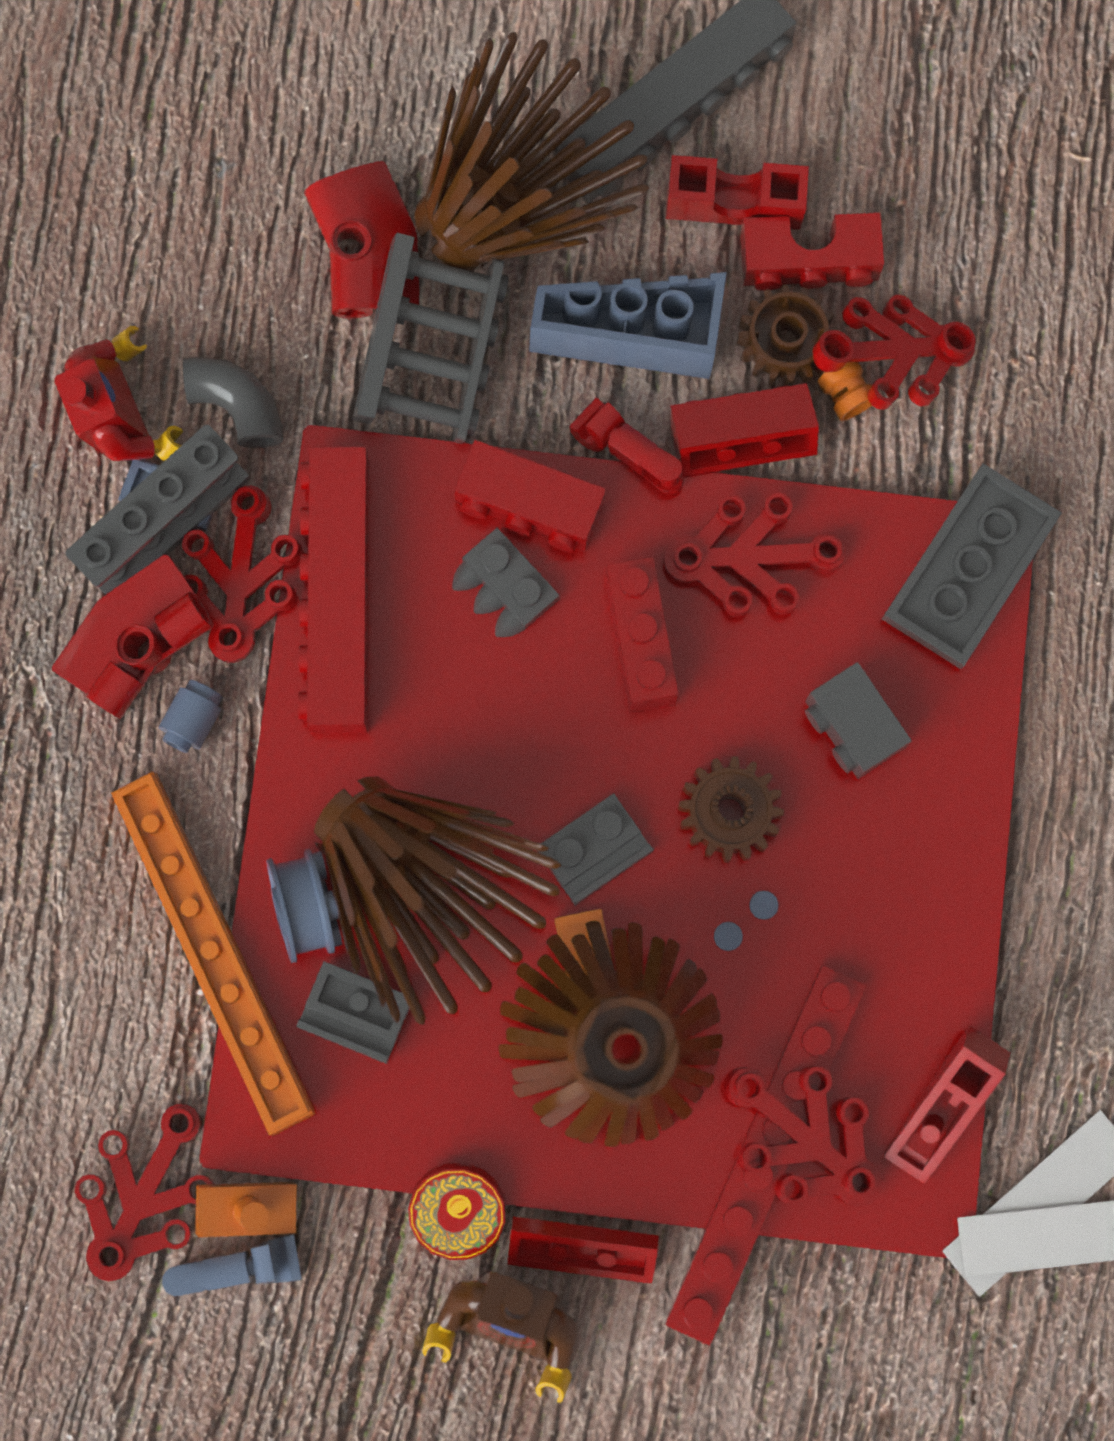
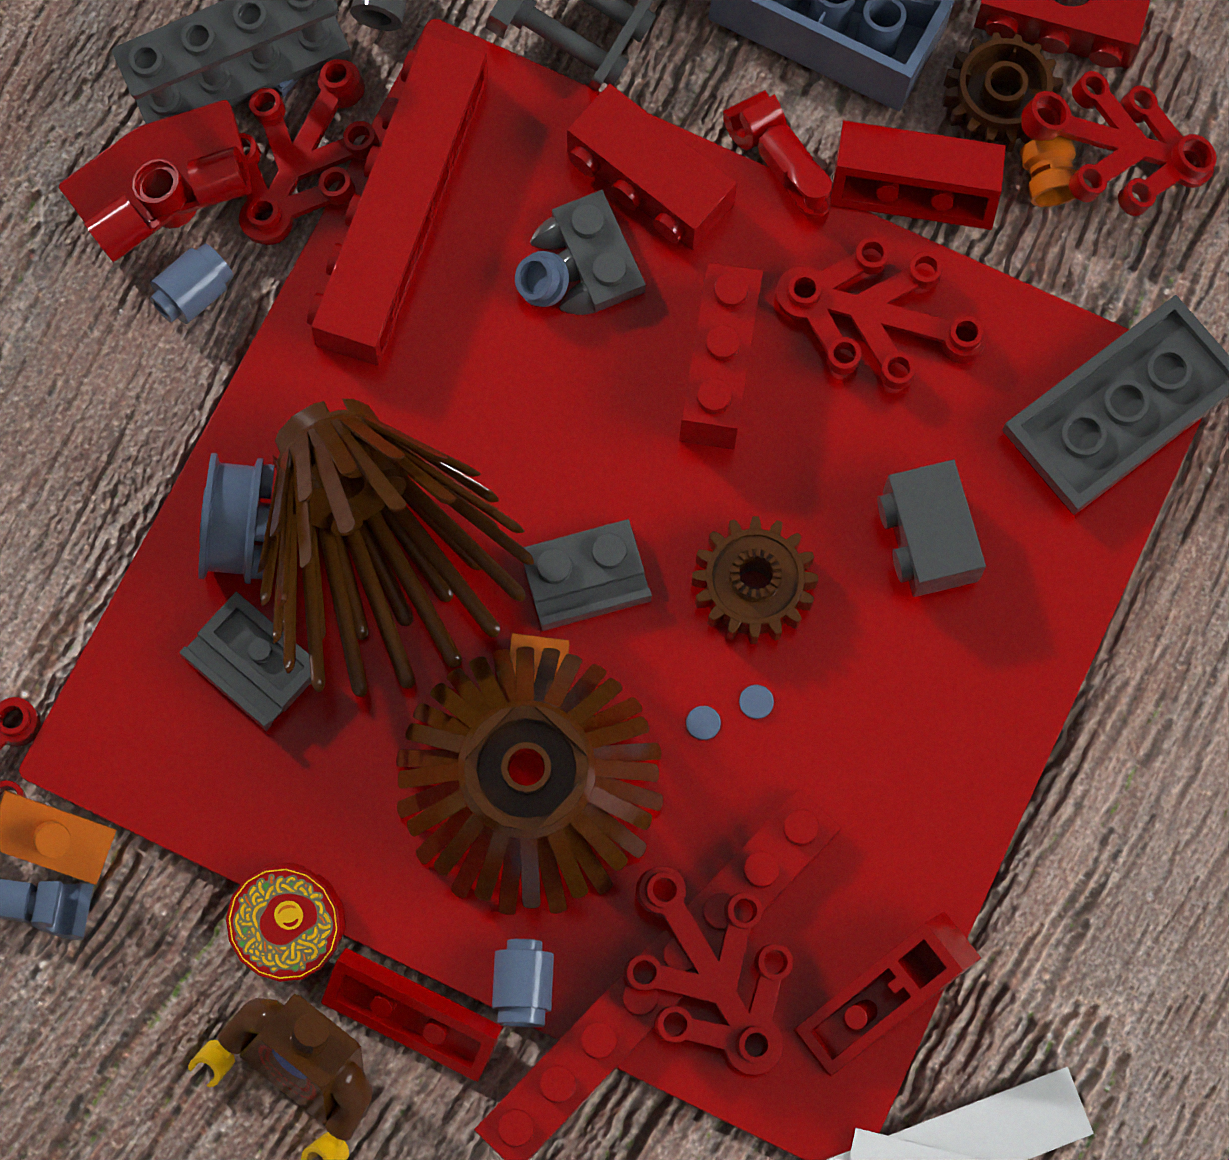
camera: 20 degrees right, 5 degrees down
(213, 954) = (119, 549): orange tile -> none
(475, 618) = (542, 278): none -> sand blue plate
(662, 1197) = (522, 983): none -> sand blue brick

